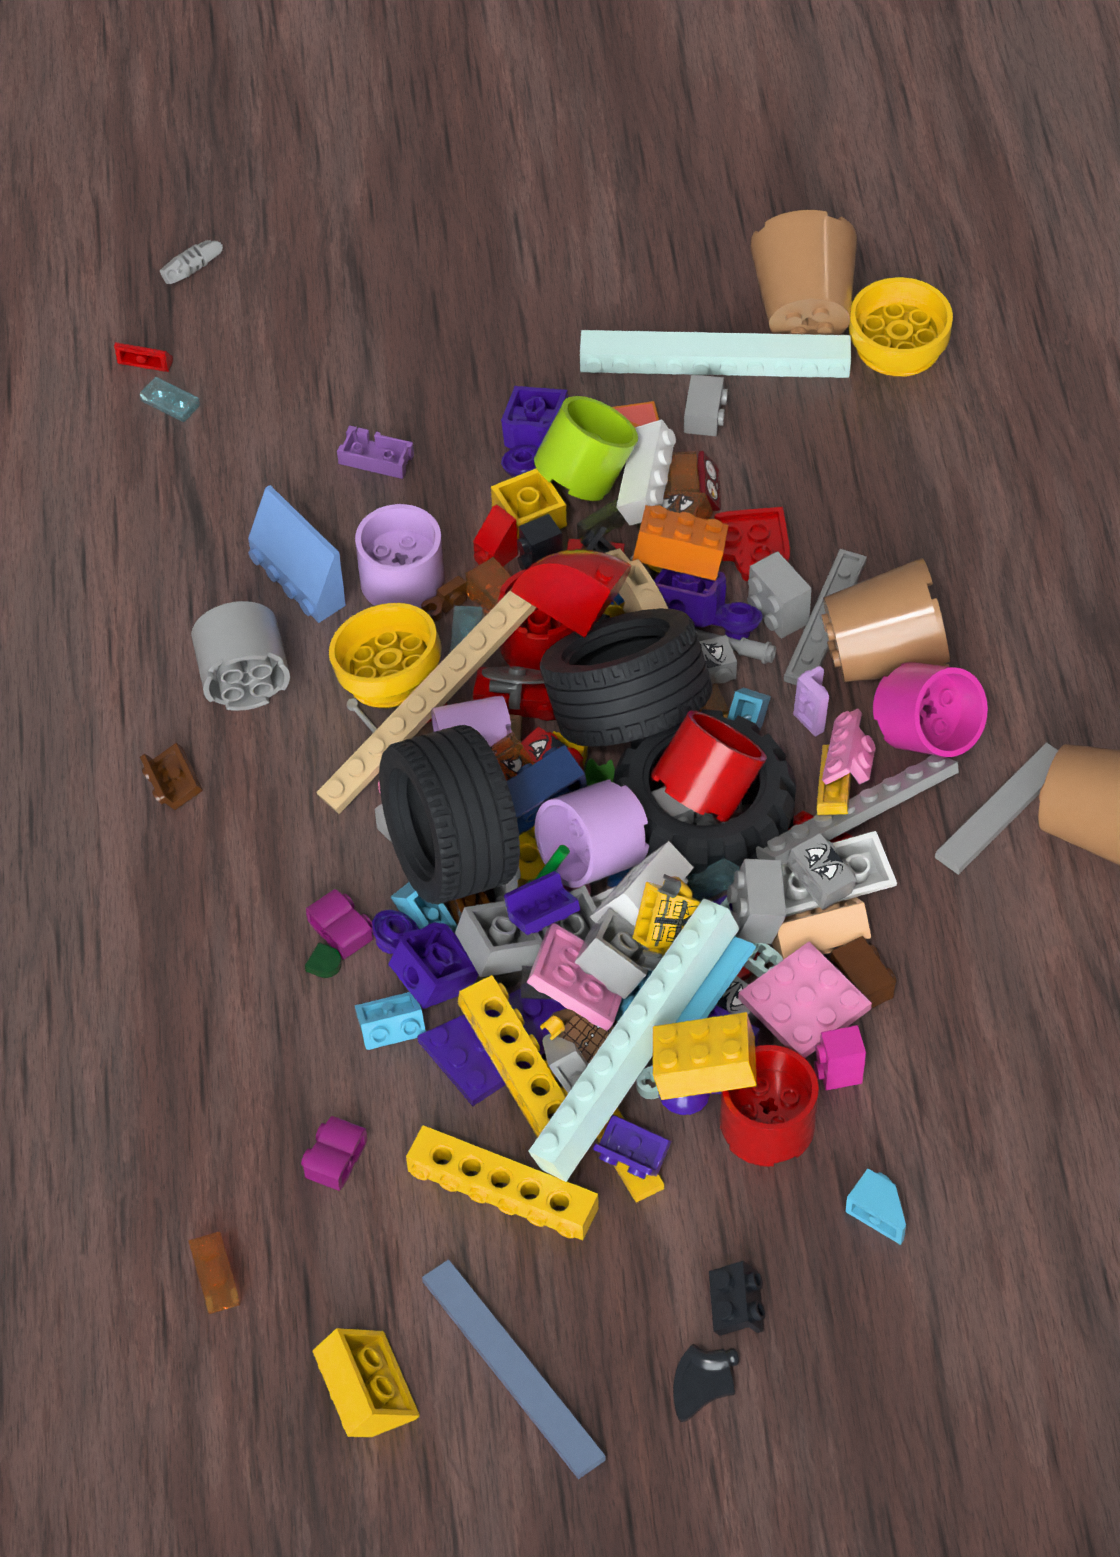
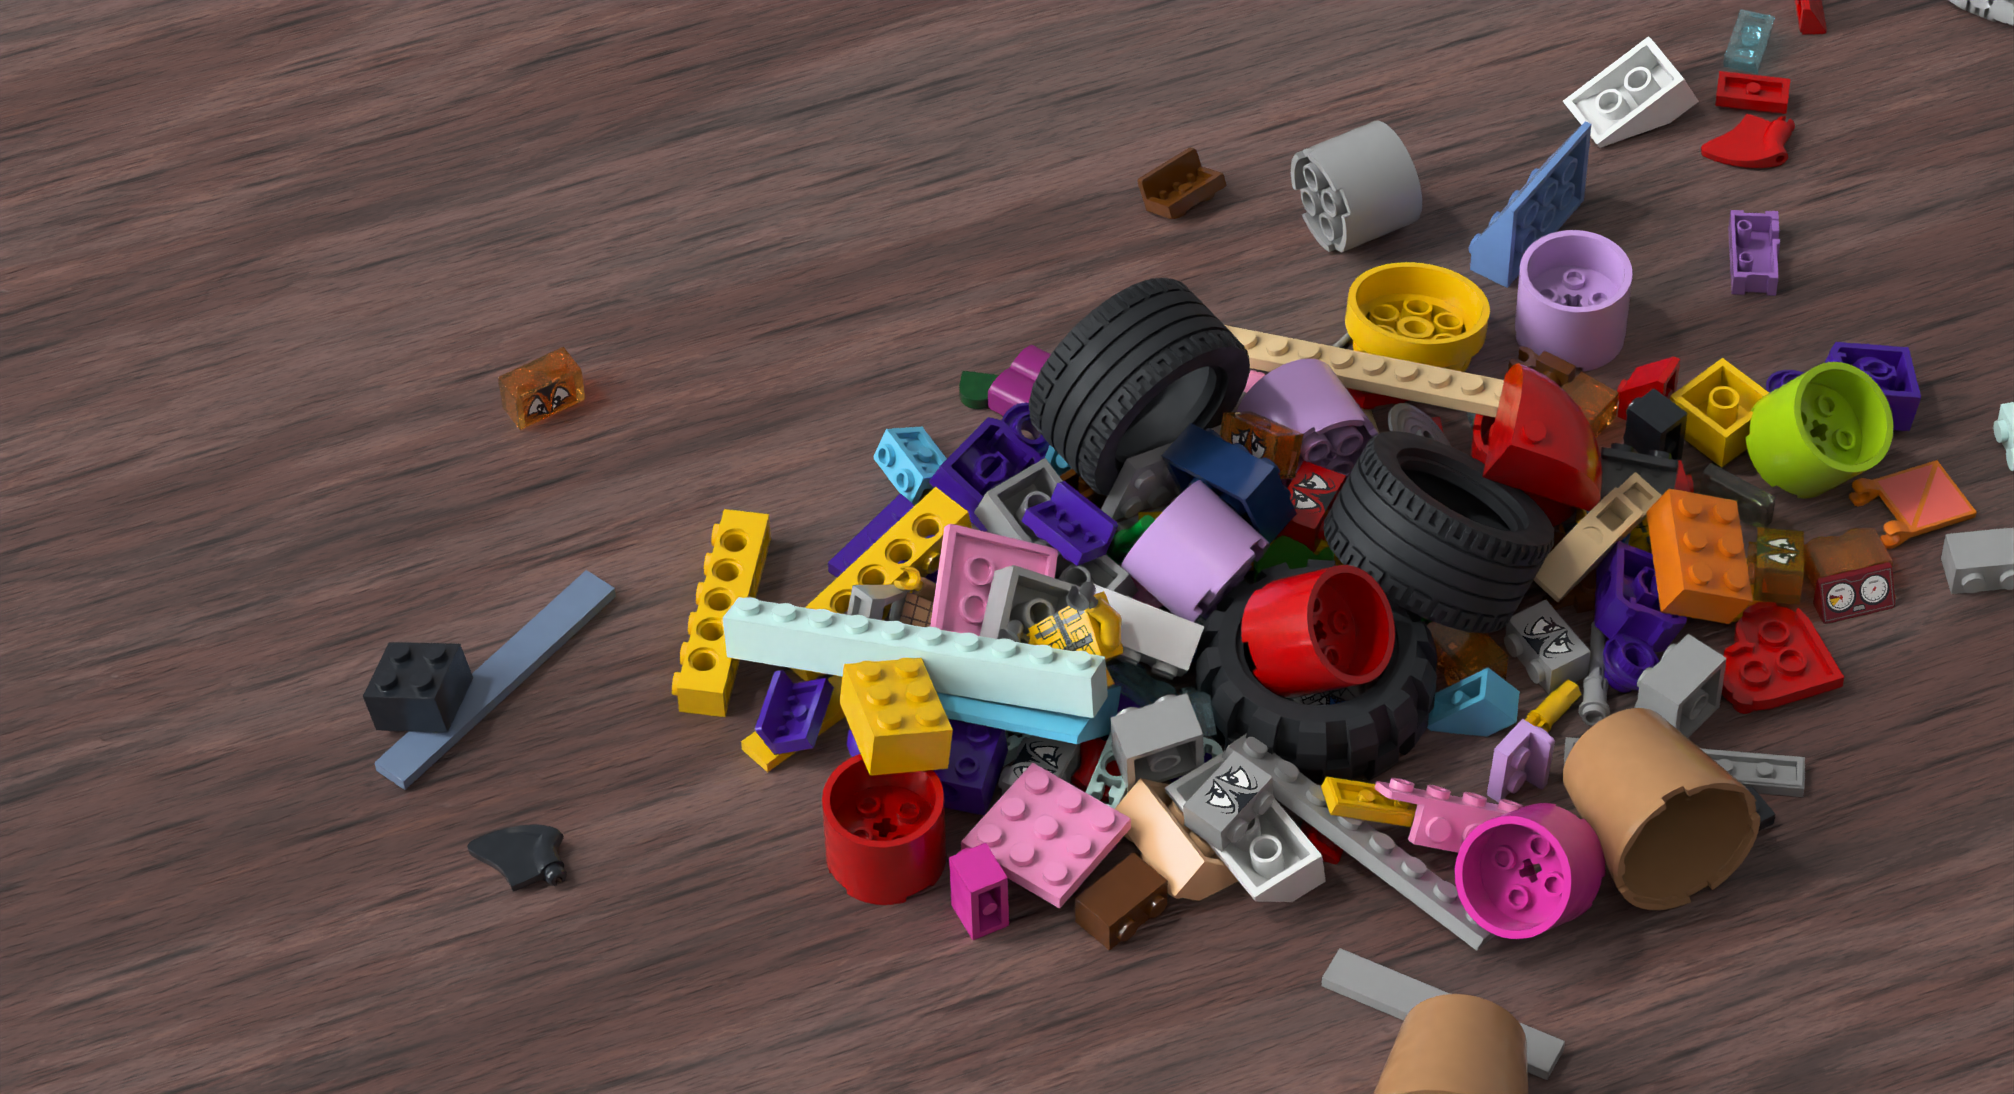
camera: 75 degrees right, 5 degrees down
(197, 479) = (1632, 96): none -> white slope
(221, 411) = (1752, 92): none -> red plate
(267, 426) = (1752, 143): none -> red arm
(334, 1153) = (721, 455): magenta brick -> none
(364, 1382) = (443, 550): yellow slope -> none
(520, 1420) = (418, 687): none -> black brick
(646, 471) = (1819, 508): white brick -> none
(736, 1298) = (632, 866): black bracket -> none
(761, 681) = (1554, 705): none -> yellow piece
(878, 1205) = (793, 977): medium azure slope -> none

